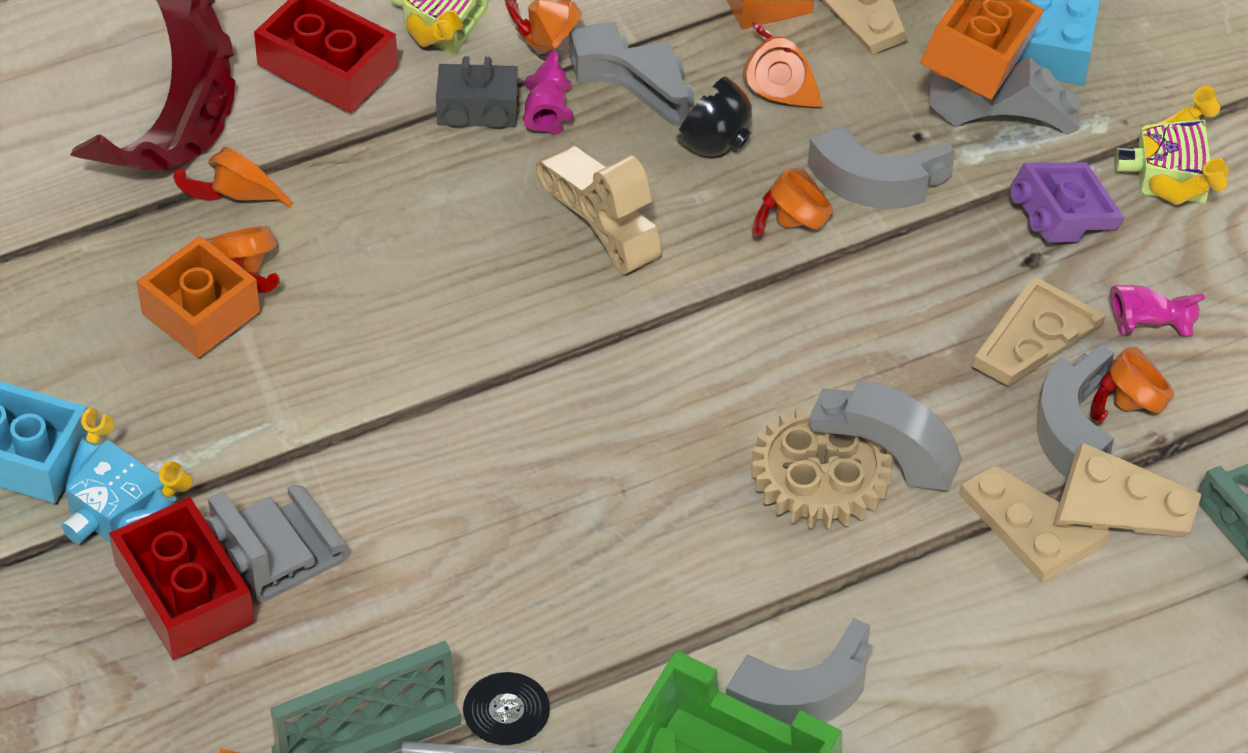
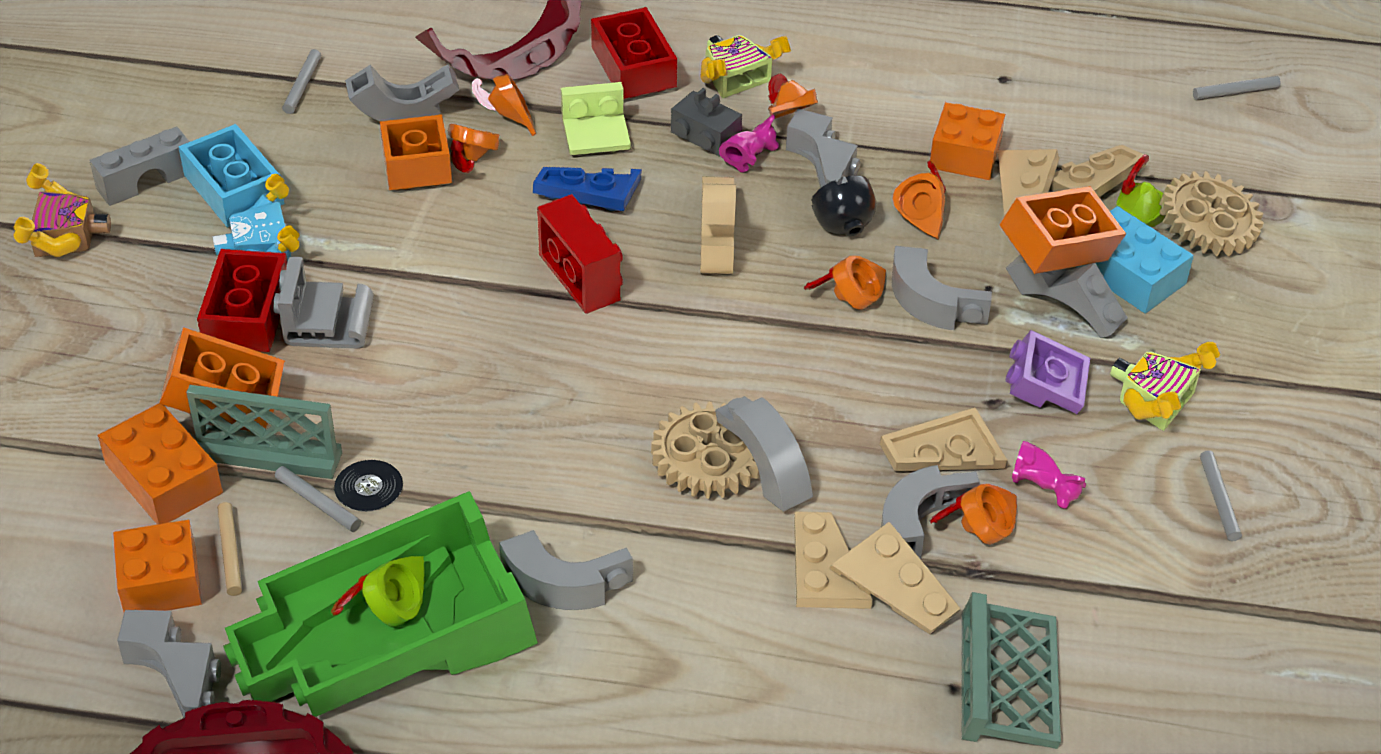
camera: 35 degrees right, 5 degrees down
(121, 239) = (392, 101): none -> light grey arch
(244, 676) = (221, 365): none -> orange brick
(353, 155) = (594, 118): none -> yellowish green bracket
(424, 236) = (595, 189): none -> blue wing
(499, 321) = (579, 253): none -> red brick

